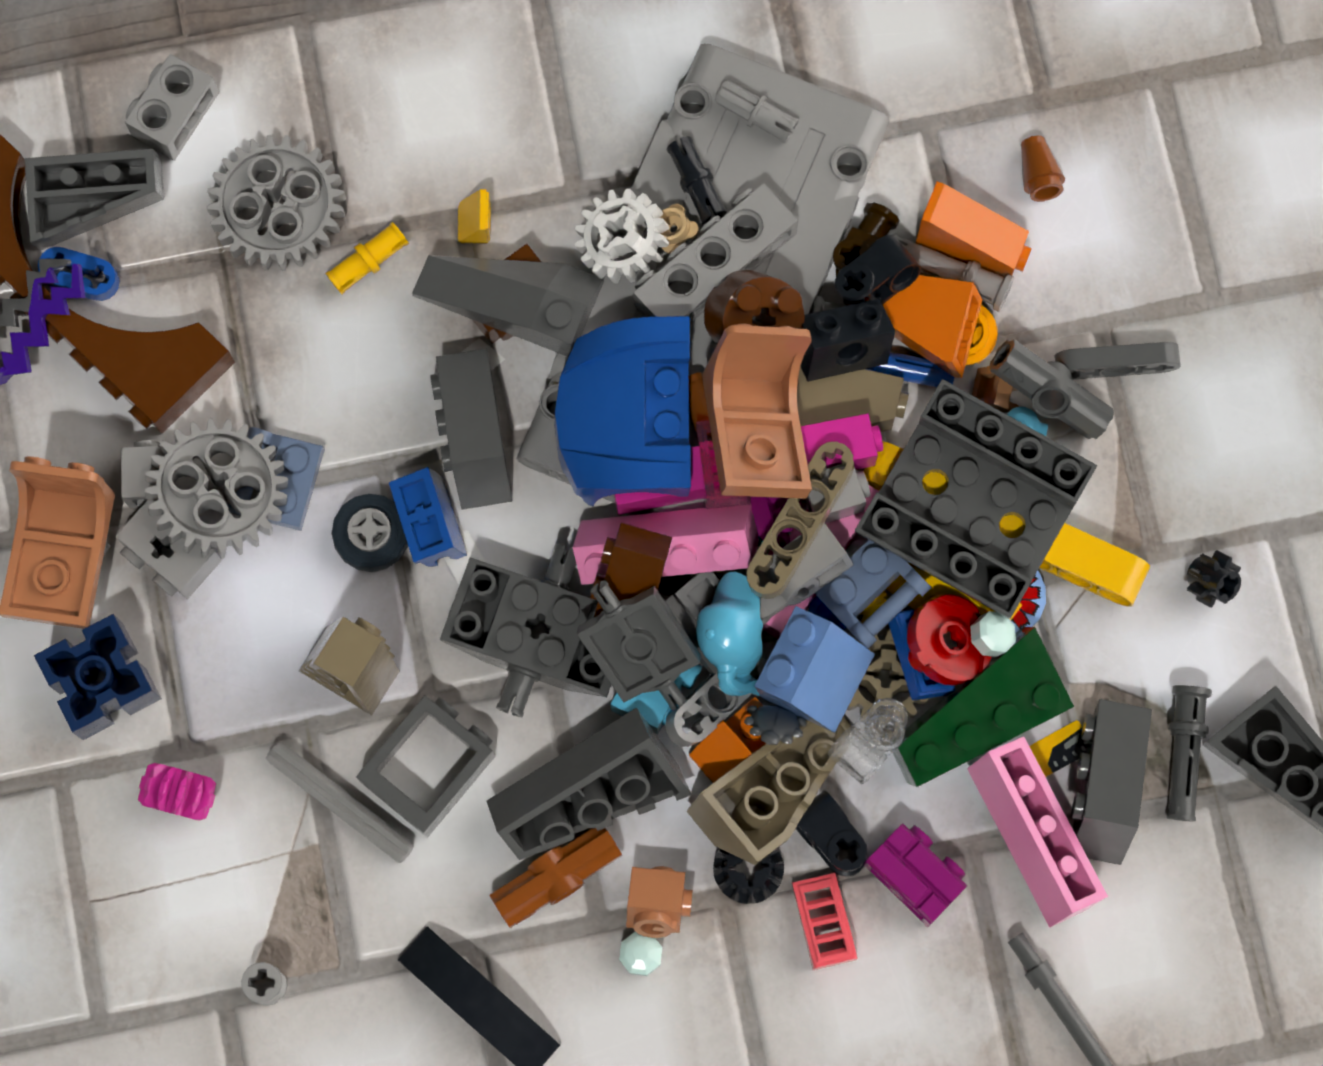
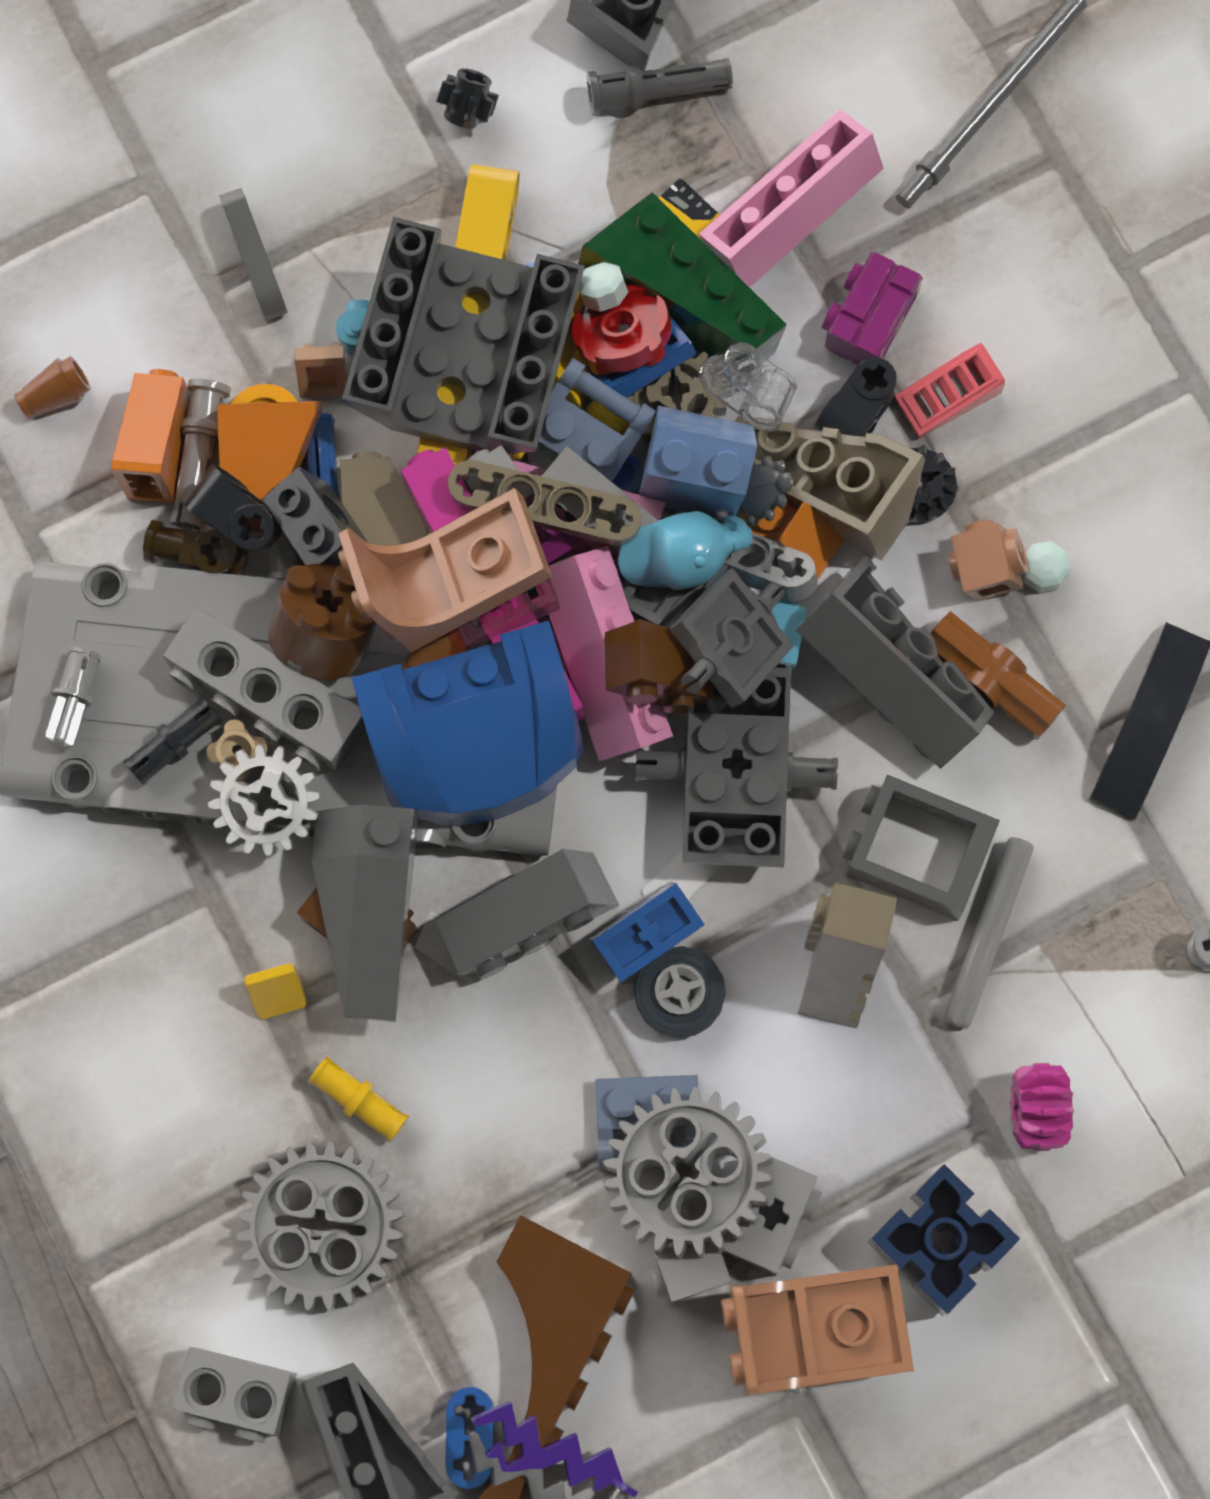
camera: 105 degrees left, 0 degrees up
(1051, 389) = (309, 304): dark grey piece -> none
(1111, 779) = (711, 142): dark grey wedge -> none

